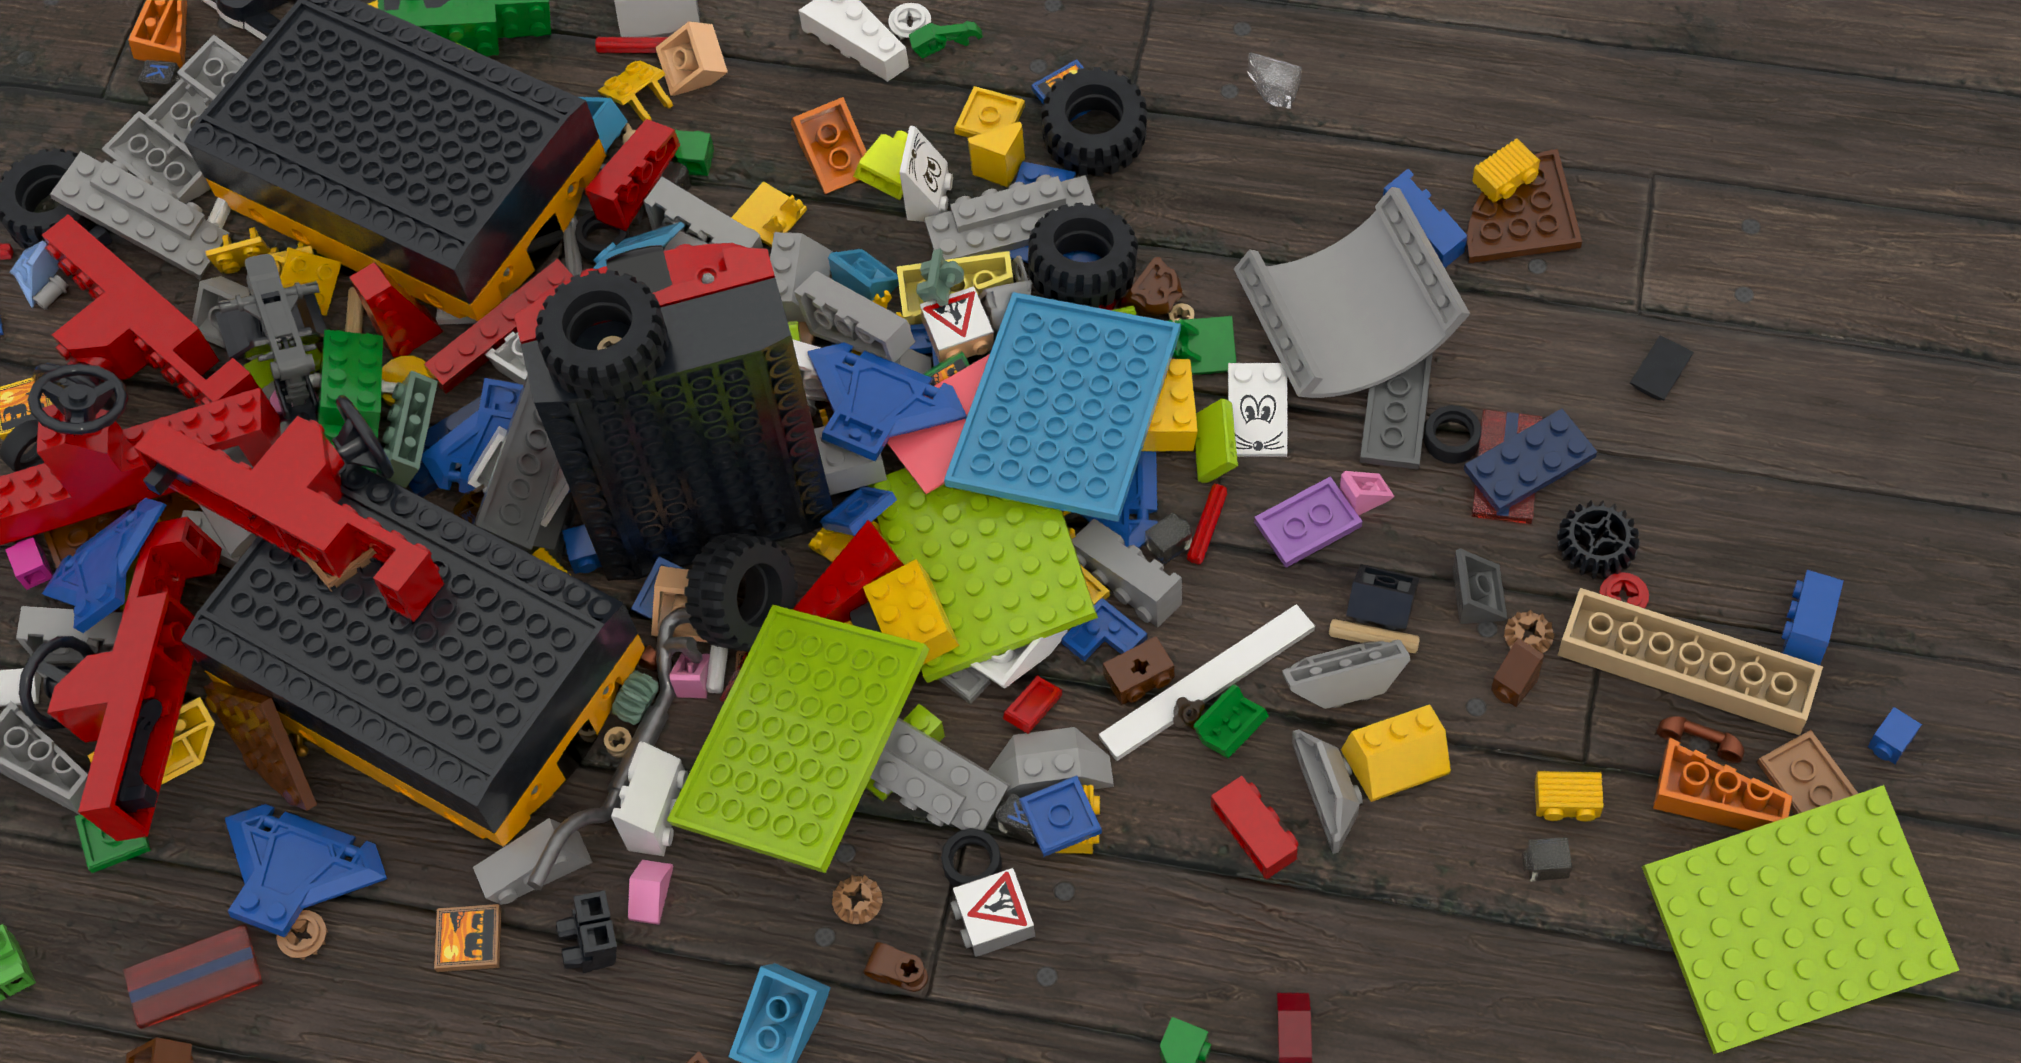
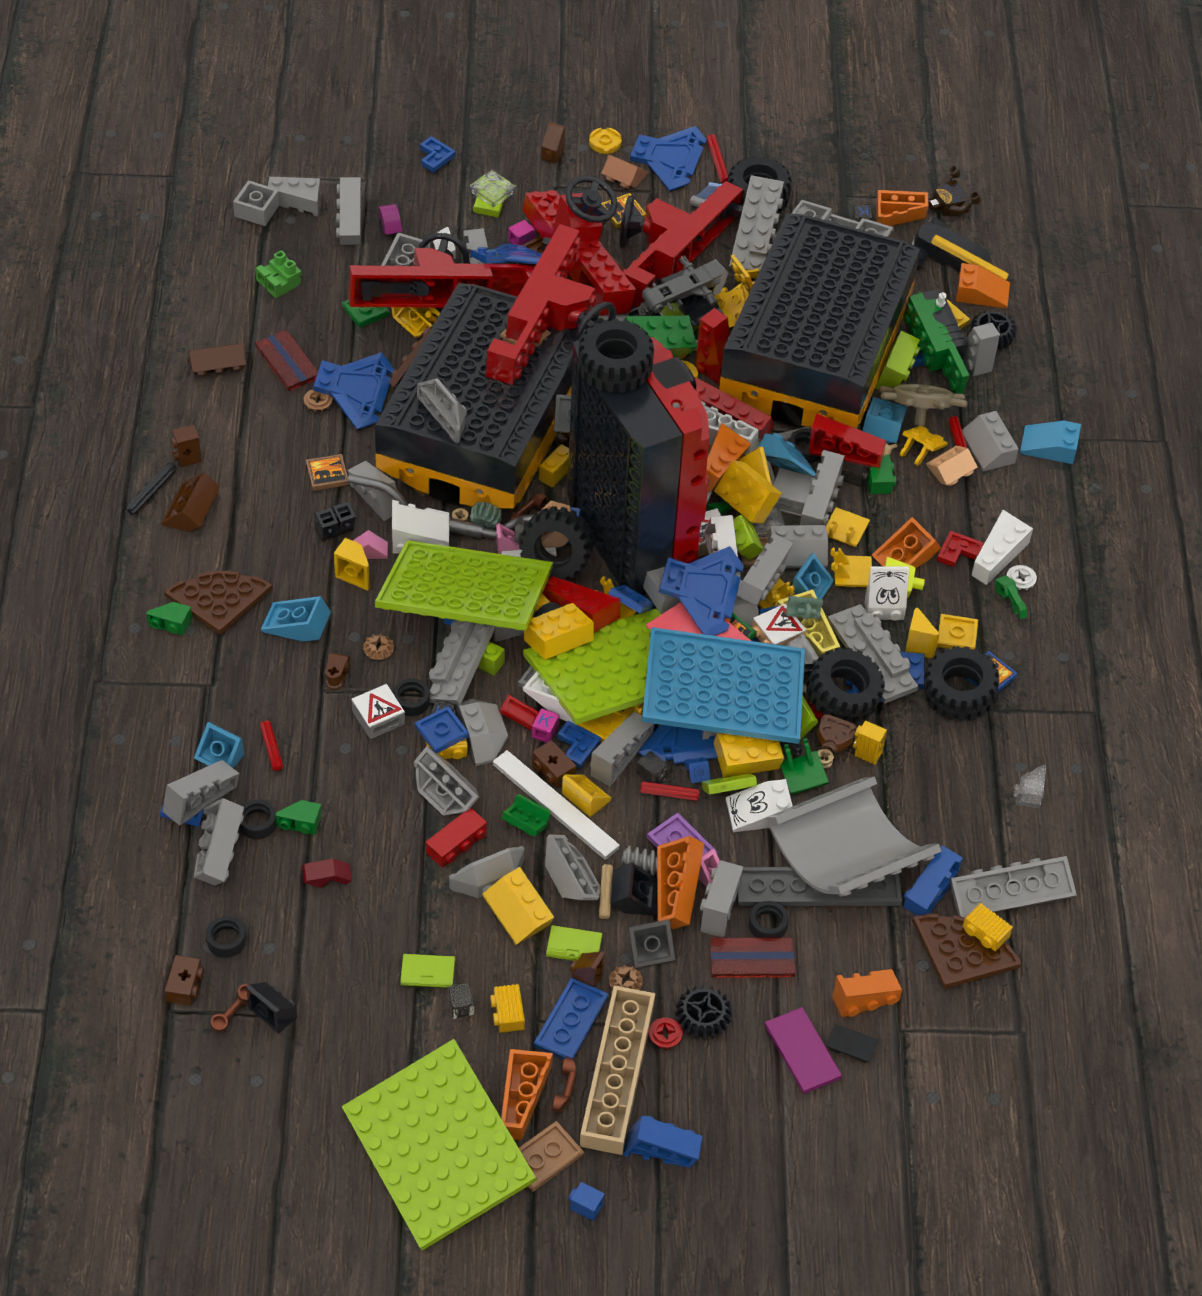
camera: 70 degrees right, 10 degrees down
(484, 685) = (443, 407): none -> light grey wedge
(573, 54) = (922, 398): none -> dark tan piece
(693, 910) = (352, 564): none -> yellow slope
(838, 82) = (958, 544): none -> red plate
(852, 220) = (850, 570): none -> yellow plate
(1064, 671) = (545, 725): none -> dark pink brick
(1160, 827) = (443, 784): none -> light grey wedge
(1176, 477) = (698, 769): none -> blue bracket
(1178, 246) = (869, 742): none -> yellow brick
(1182, 706) = (531, 787): dark brown plate -> none
(1198, 636) = (584, 793): none -> yellow slope
(1334, 576) = (644, 861): none -> light grey piece
(1384, 528) = (677, 879): none -> orange wedge
(1420, 479) = (720, 898): none -> light grey wedge
(1435, 133) = (1014, 886): none -> light grey plate
(1463, 691) = (571, 943): none -> lime piece
(1487, 901) = (427, 970): none -> lime piece
(1530, 461) = (756, 966): dark blue plate -> none
(1587, 335) = (865, 992): none -> orange wedge
(1589, 716) = (571, 1019): none -> blue tile
(1663, 430) = (803, 1050): none -> magenta tile

